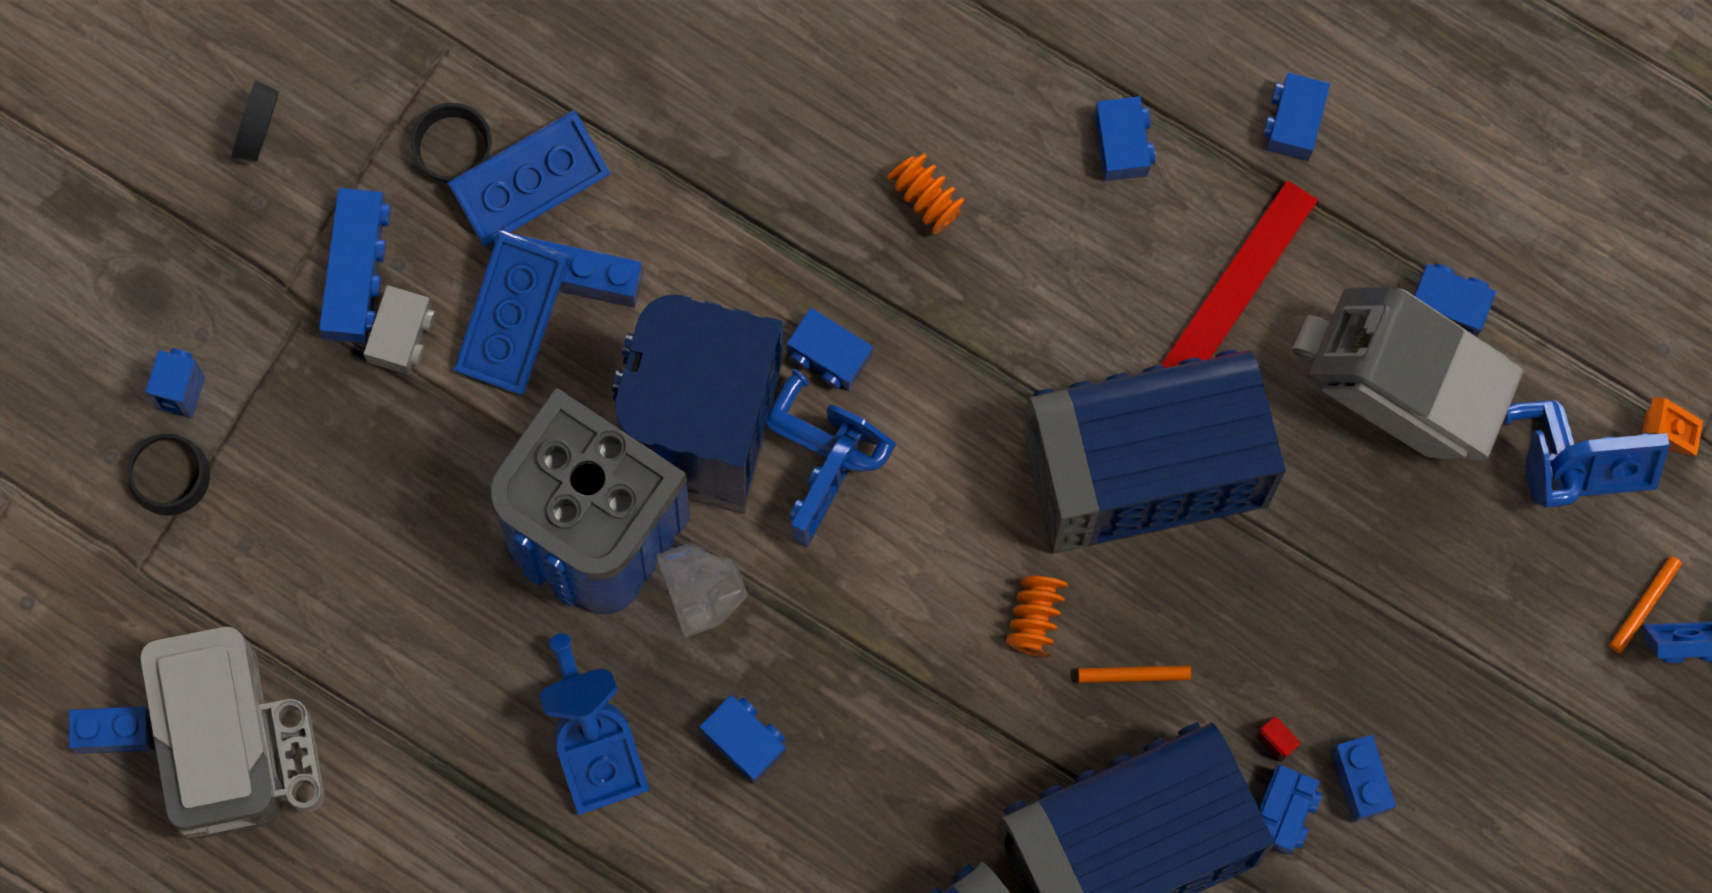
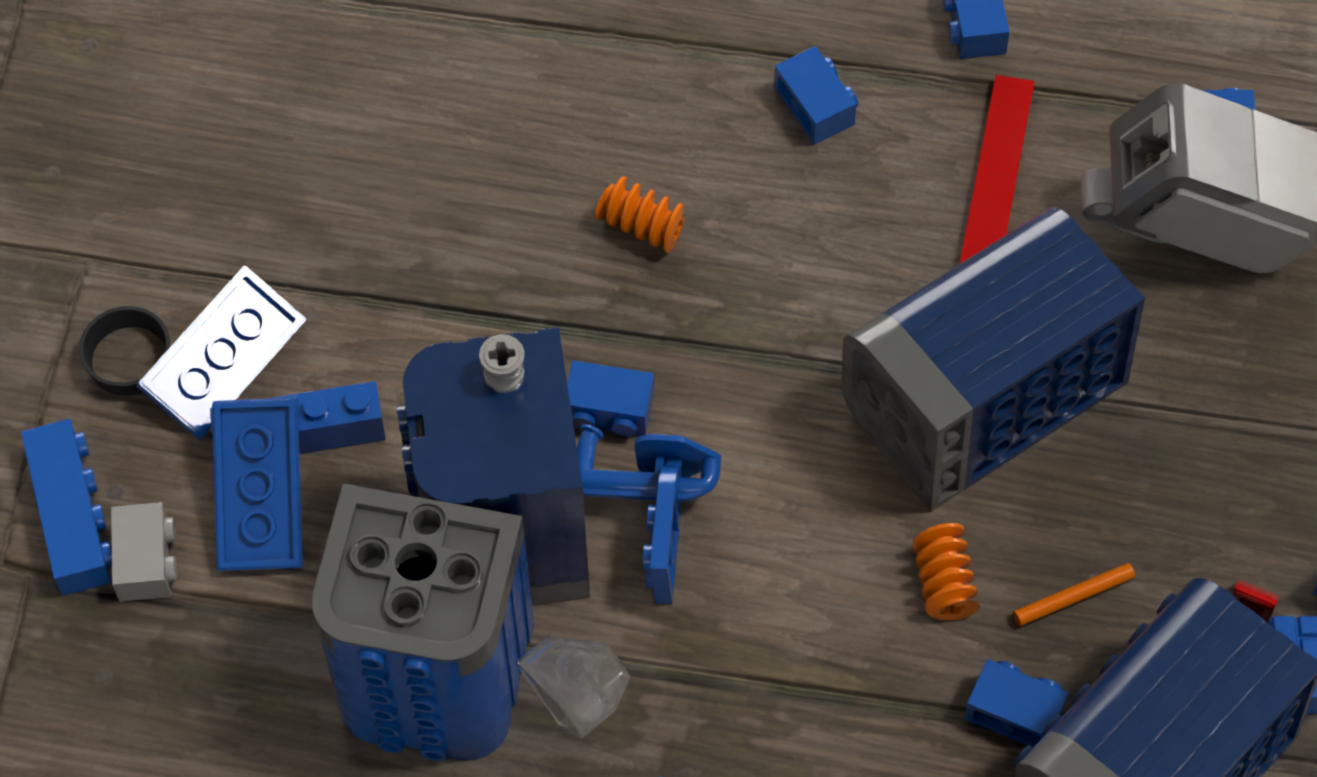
camera: 15 degrees left, 15 degrees down
(713, 330) = (500, 350): none -> light grey bush
(1042, 748) = (1014, 702): none -> blue brick

